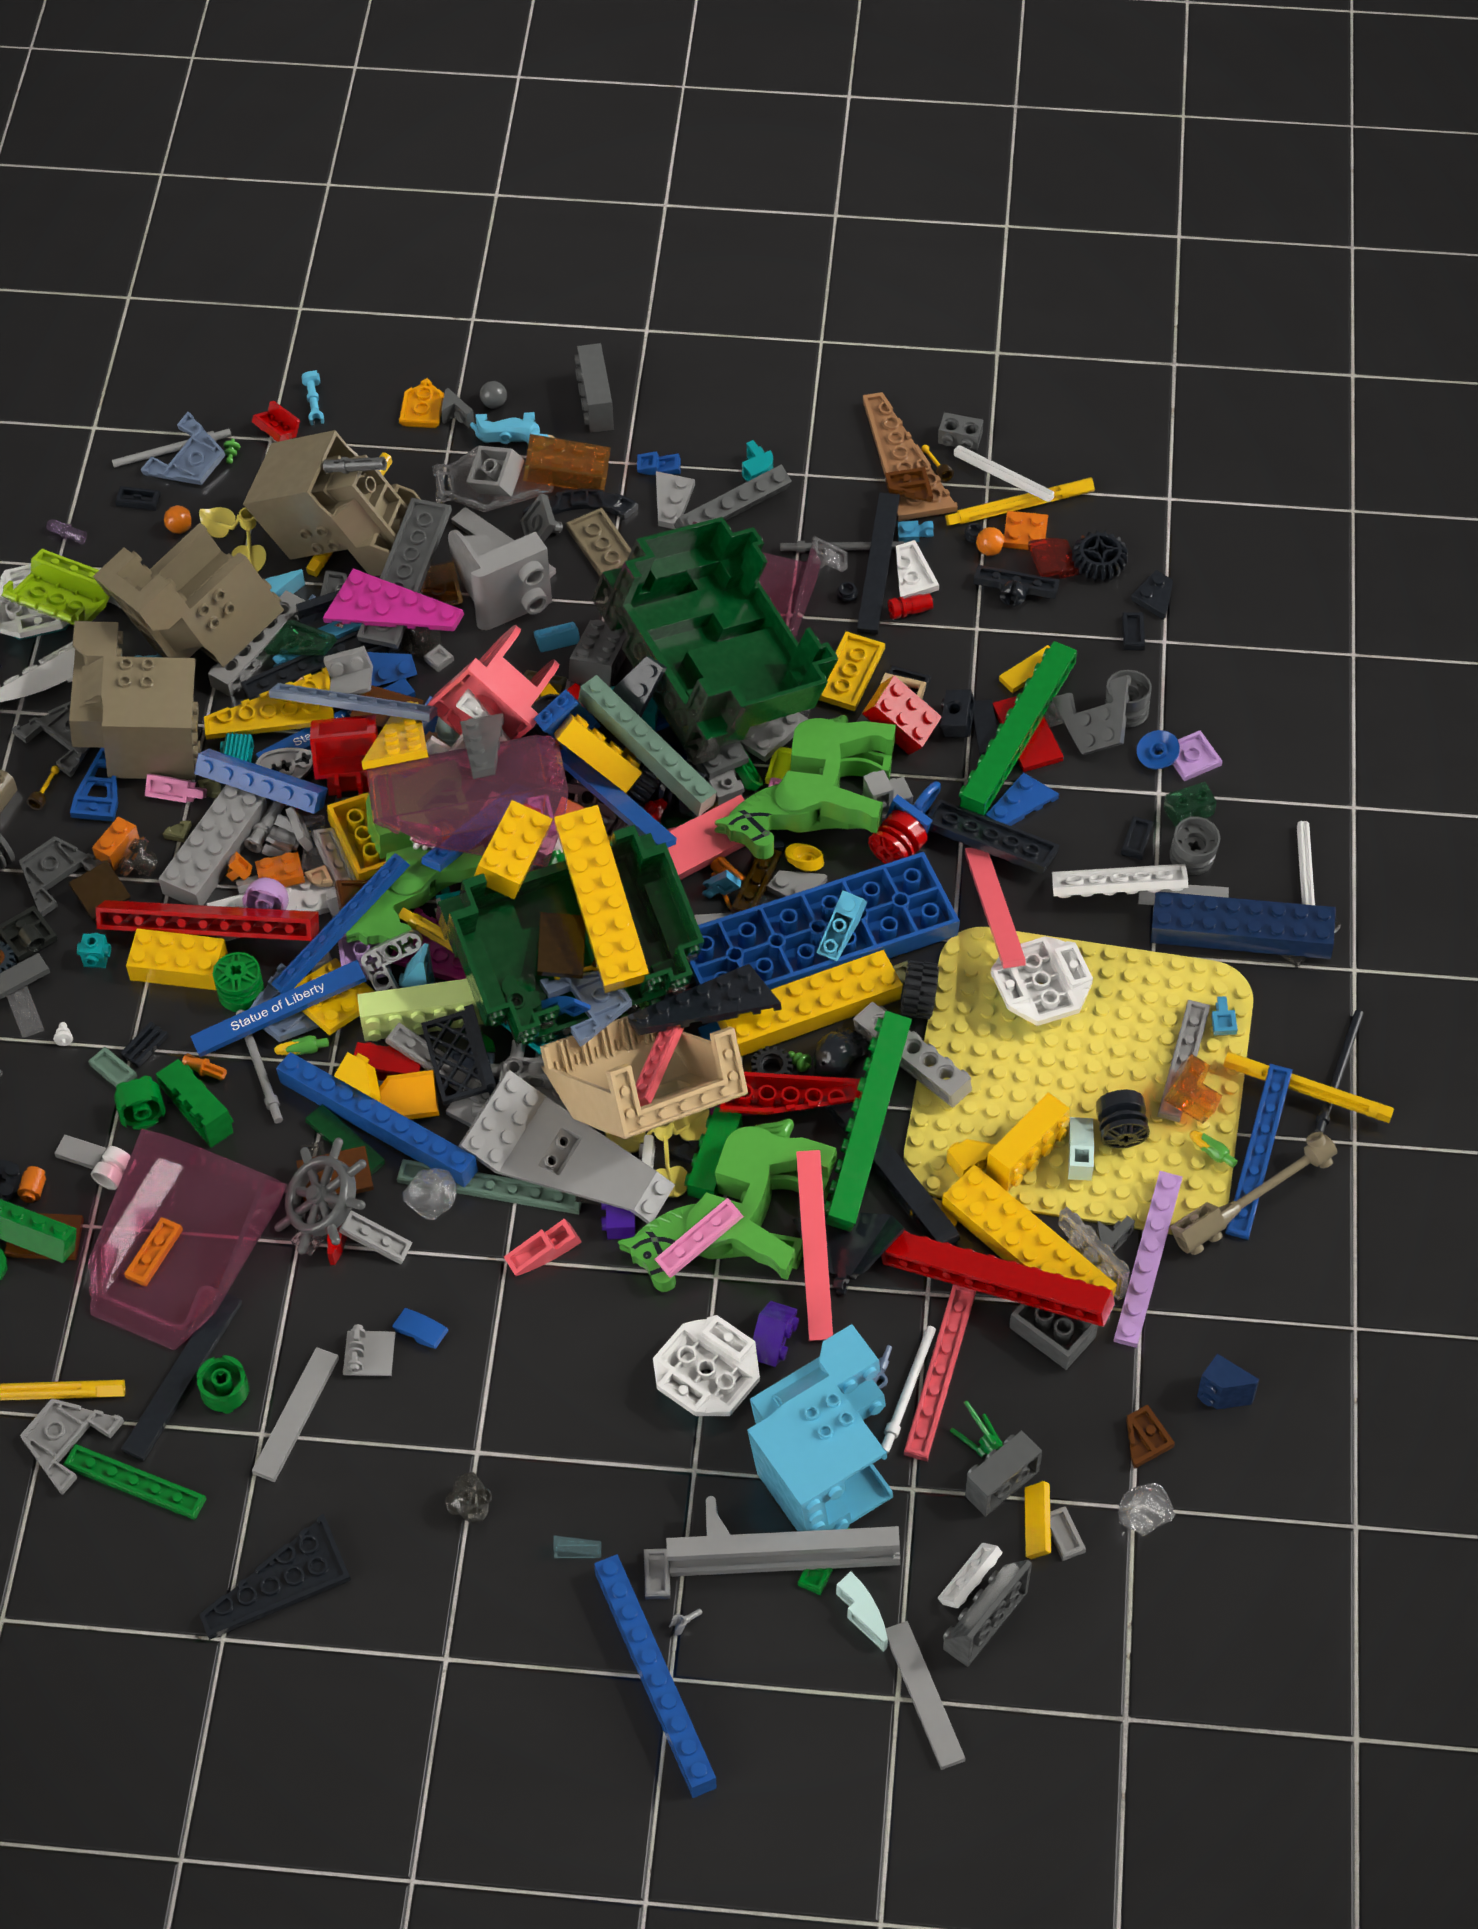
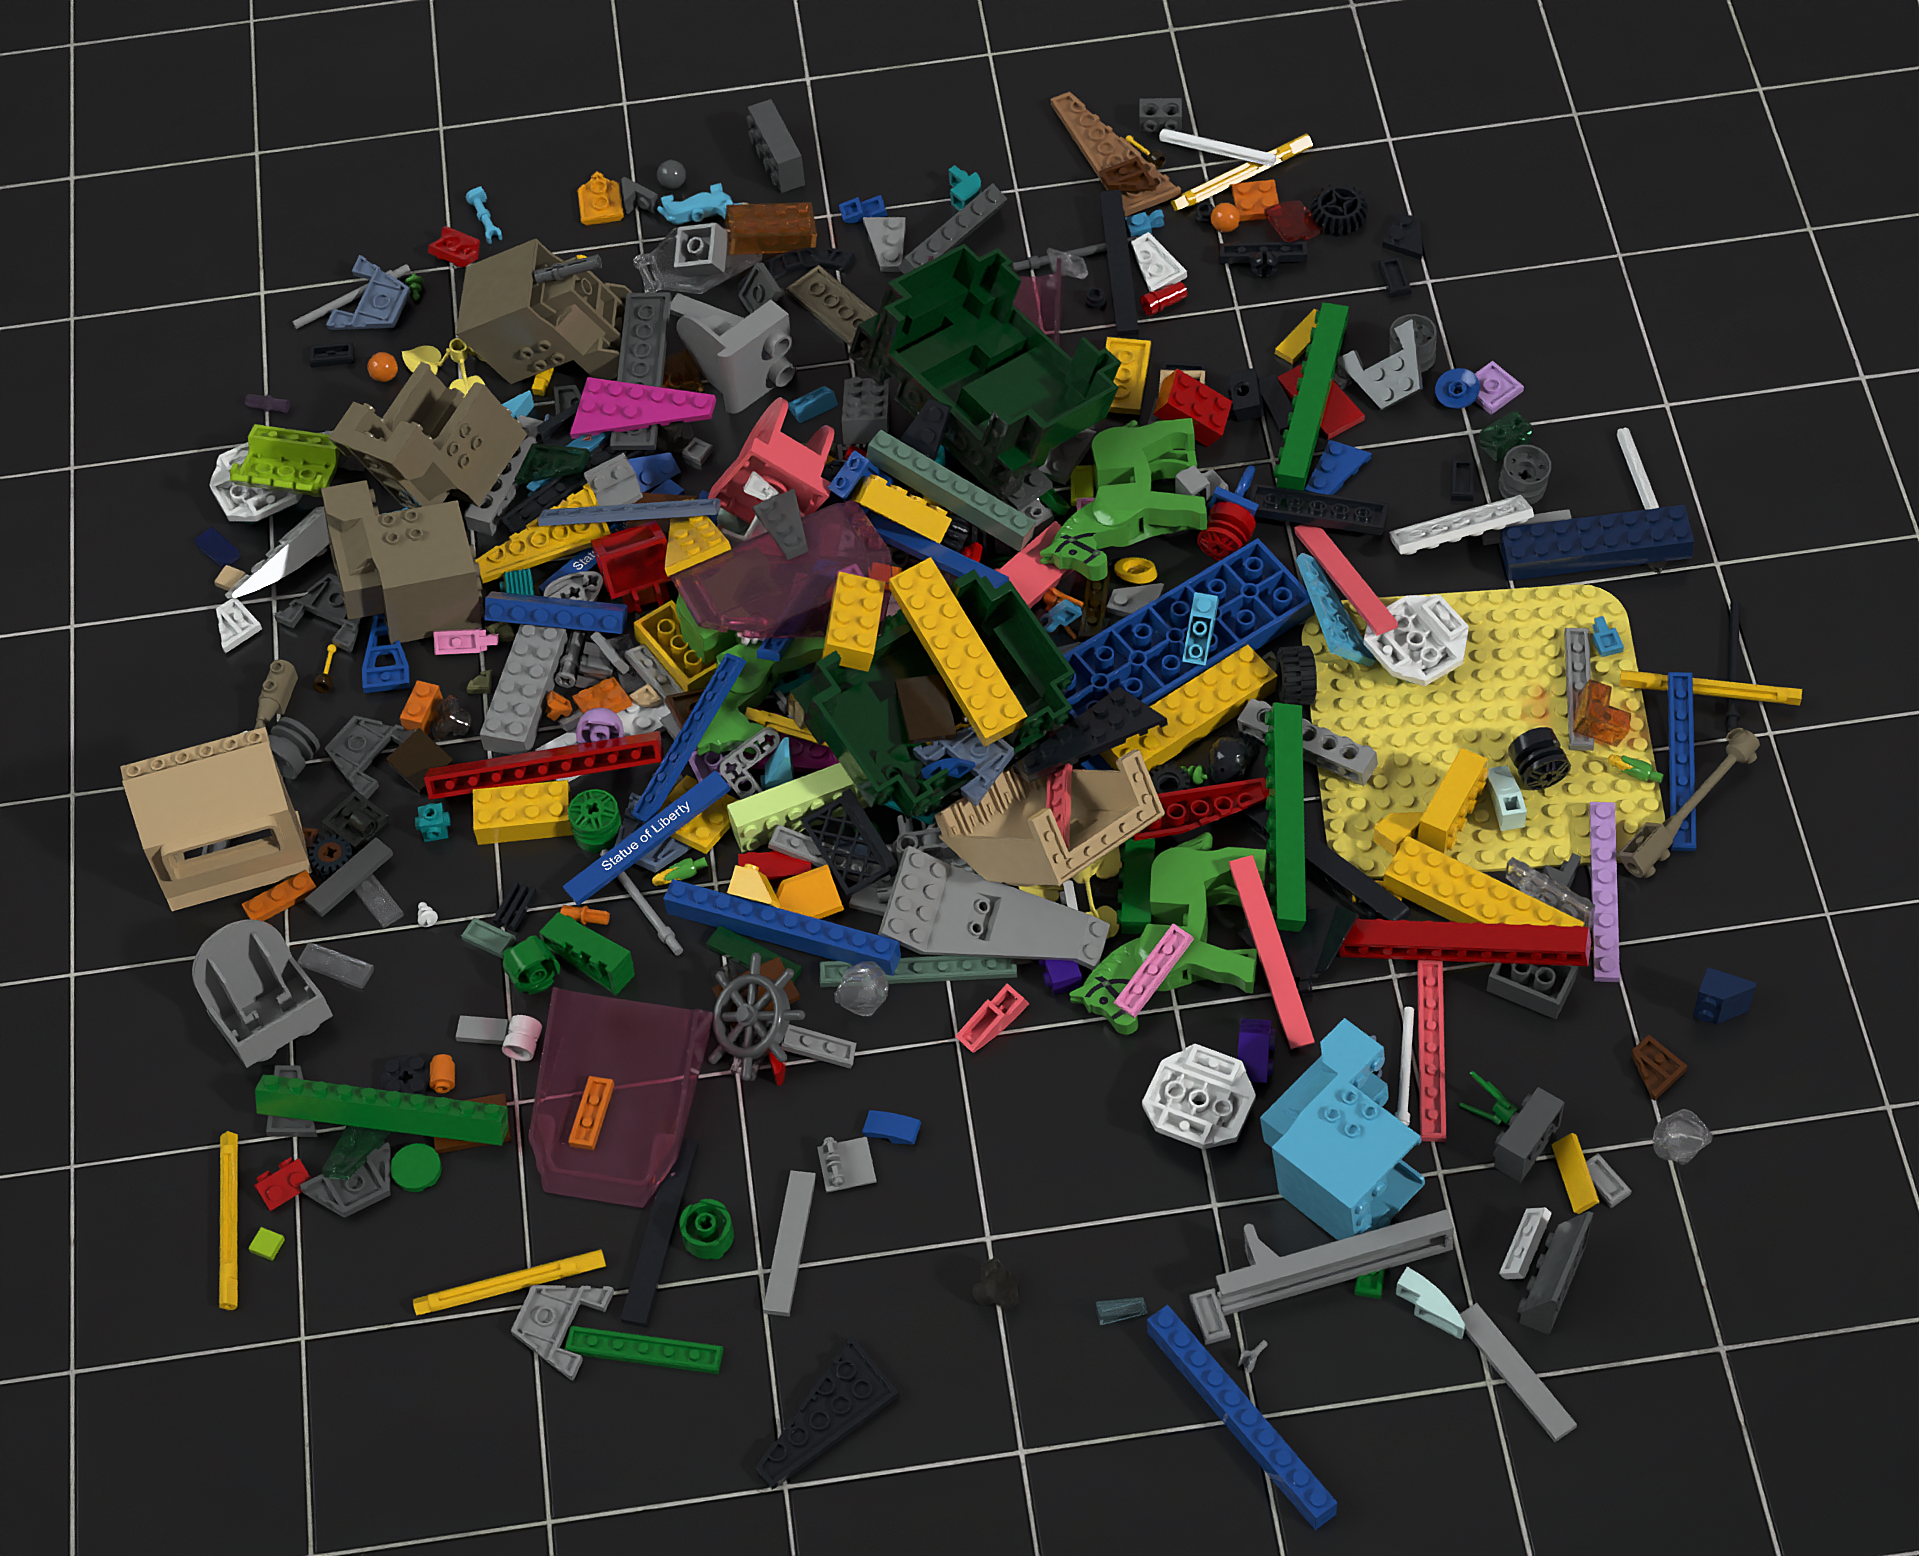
camera: 10 degrees left, 0 degrees up
(970, 939) = (1336, 624): none -> medium azure wing

